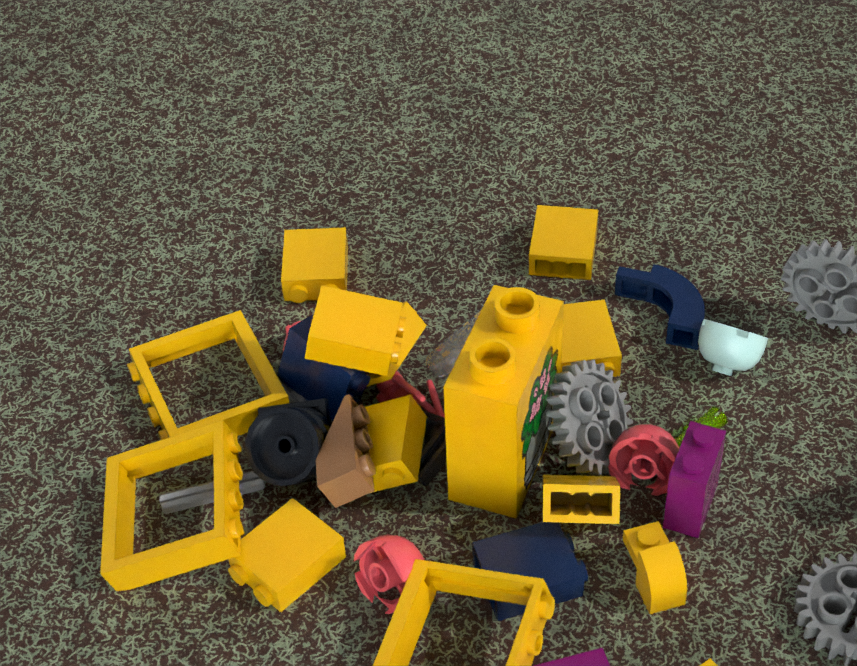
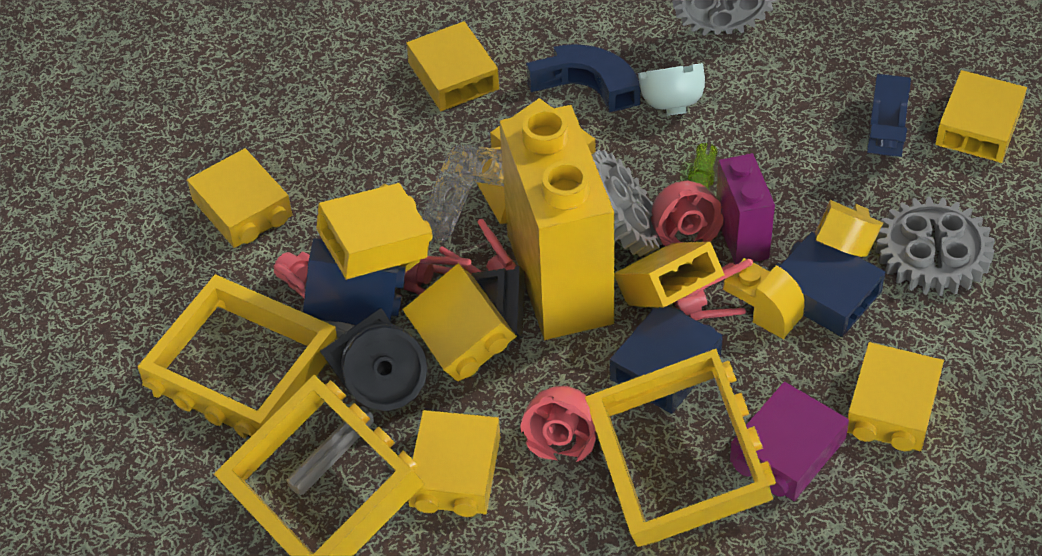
camera: 35 degrees left, 5 degrees up
(344, 459) = (447, 349): medium nougat slope -> none
(594, 534) = (693, 302): none -> coral plant
(727, 588) = (833, 283): none -> dark blue brick
(775, 548) = (848, 229): none -> yellow brick

